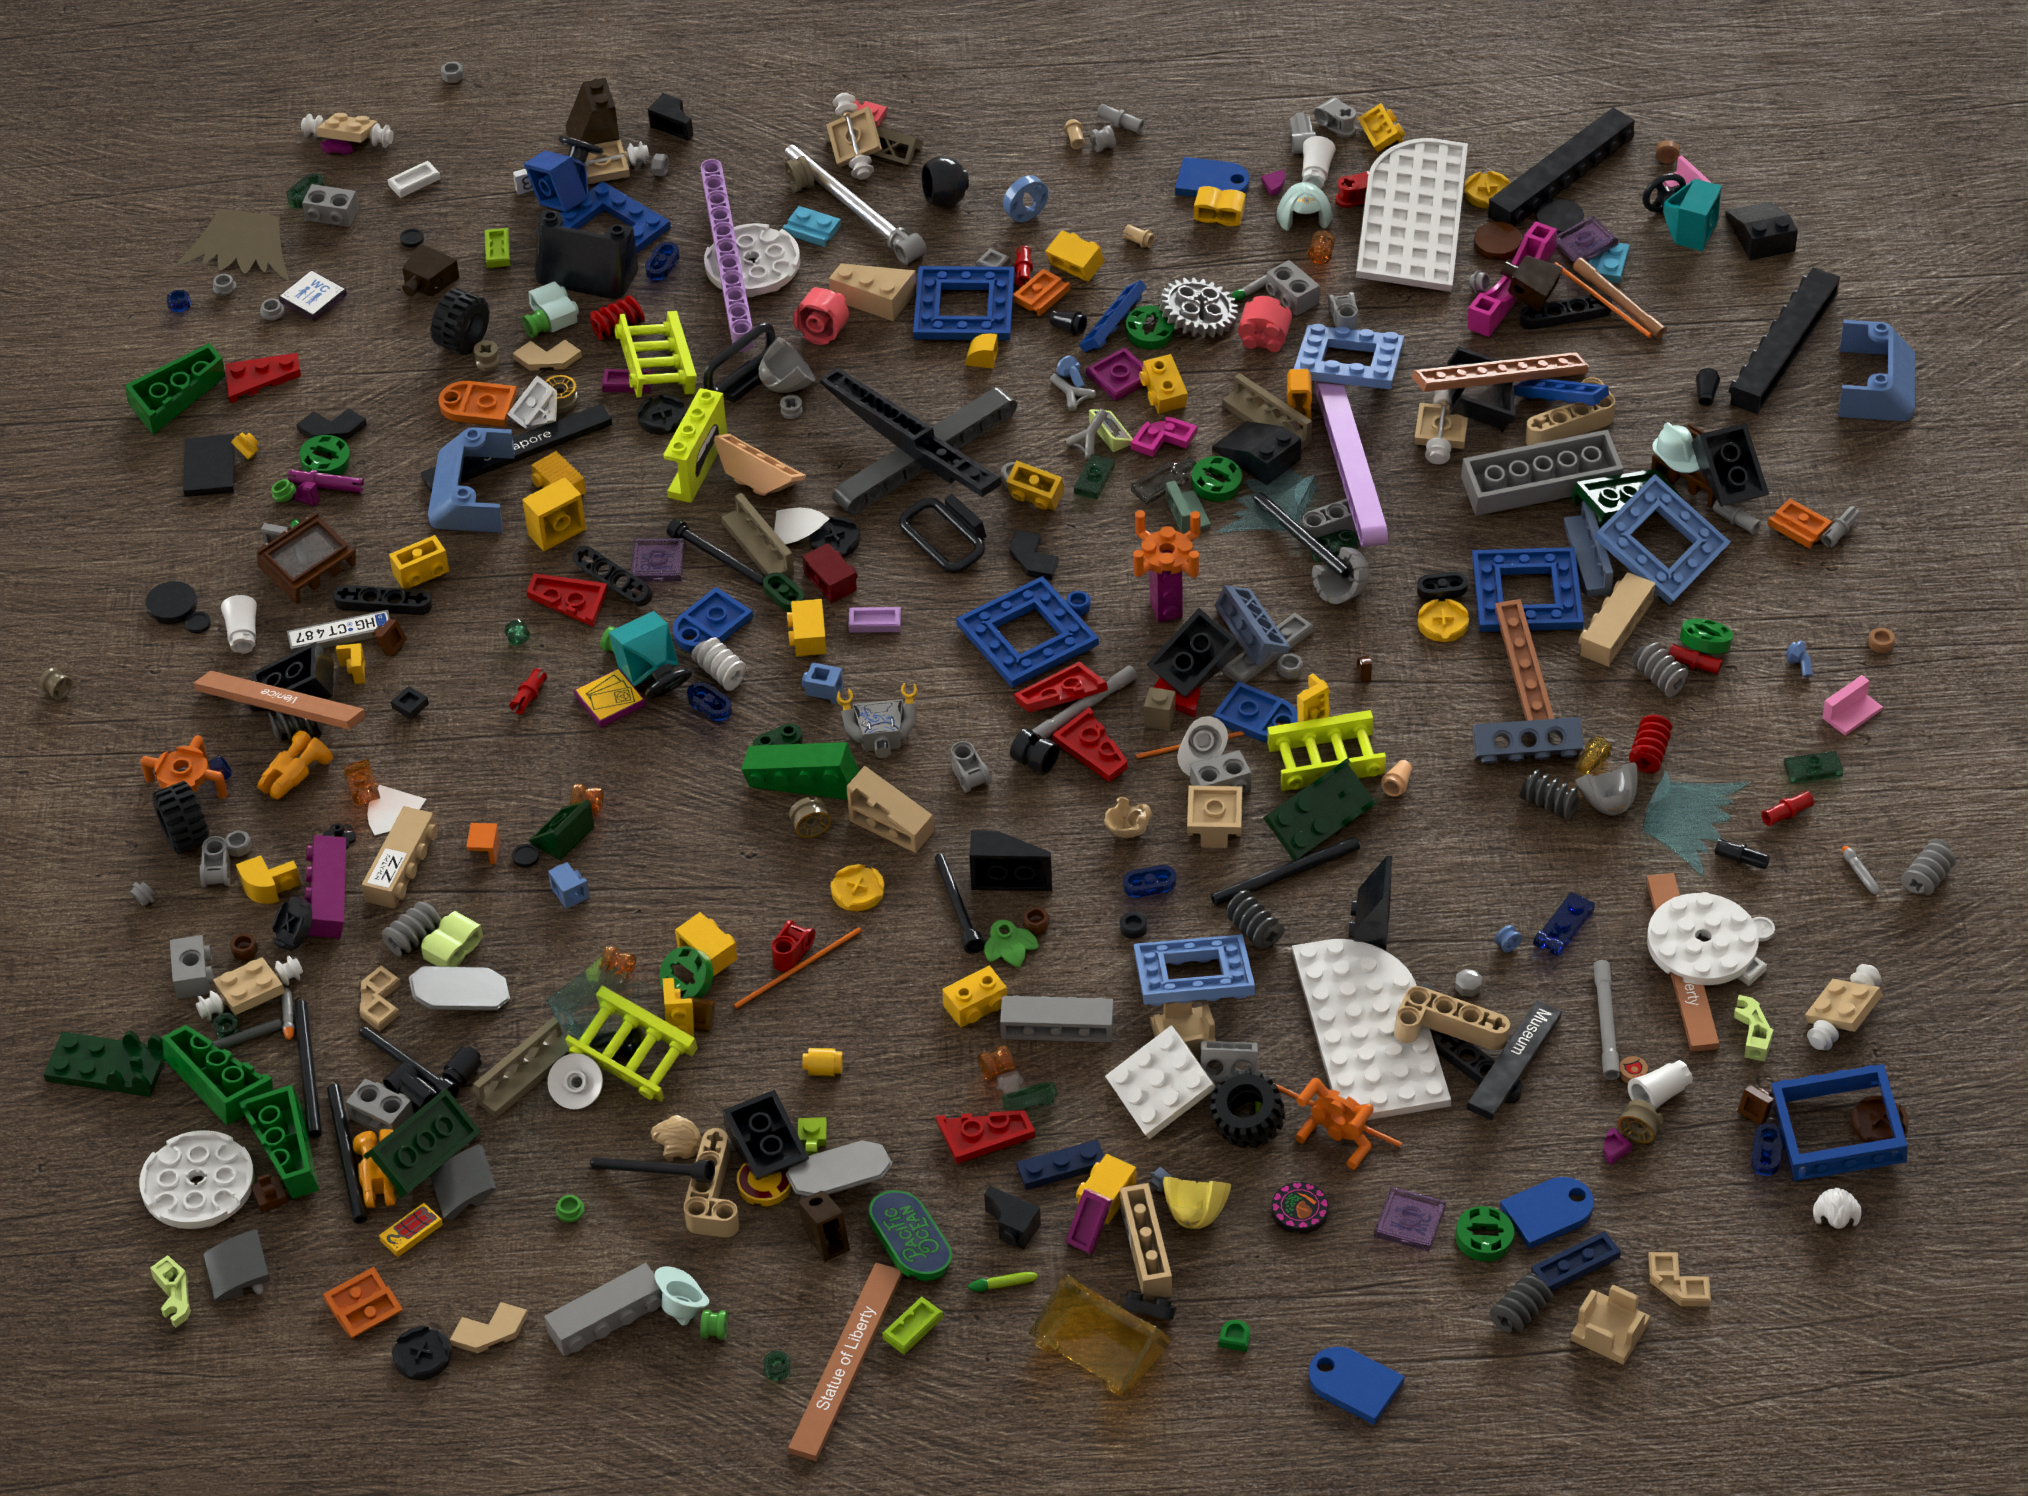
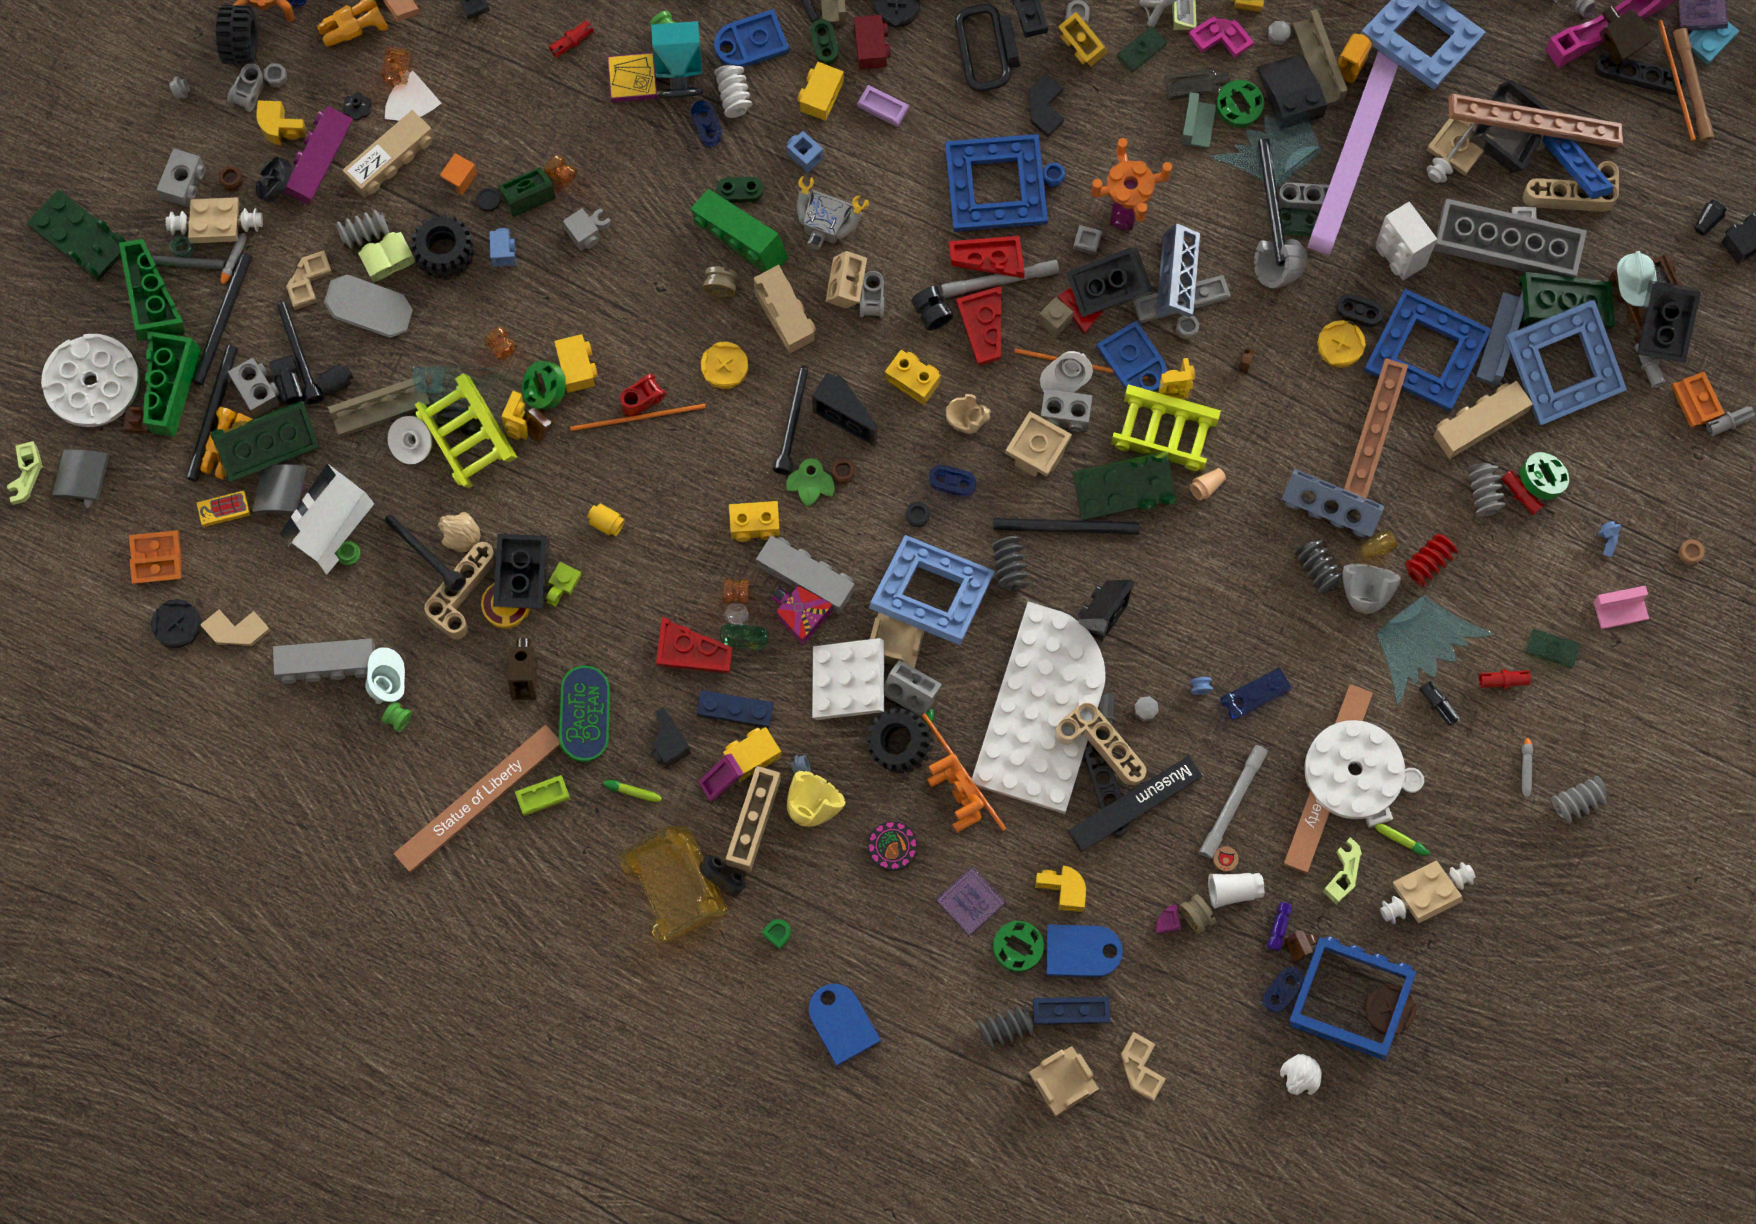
camera: 25 degrees right, 25 degrees up
(501, 891) = (439, 229): none -> black tyre
(530, 1182) = (326, 517): none -> white sticker
(641, 834) = (584, 229): none -> light grey brick
(772, 1359) = (425, 783): clear green bush -> none
(840, 1168) = (562, 628): light grey shield -> none
(935, 762) = (846, 279): none -> tan brick
(1052, 815) = (912, 376): none -> yellow brick
(1074, 1051) = (801, 612): none -> torso
(1146, 641) = (1087, 240): none -> light grey tile
(1214, 413) = (1279, 32): none -> light grey tile
(1449, 506) = (1405, 241): none -> white brick
(1496, 1156) = (1069, 883): none -> yellow brick
(1725, 1100) = (1279, 926): none -> dark purple axle
(1787, 978) = (1398, 837): none -> lime piece

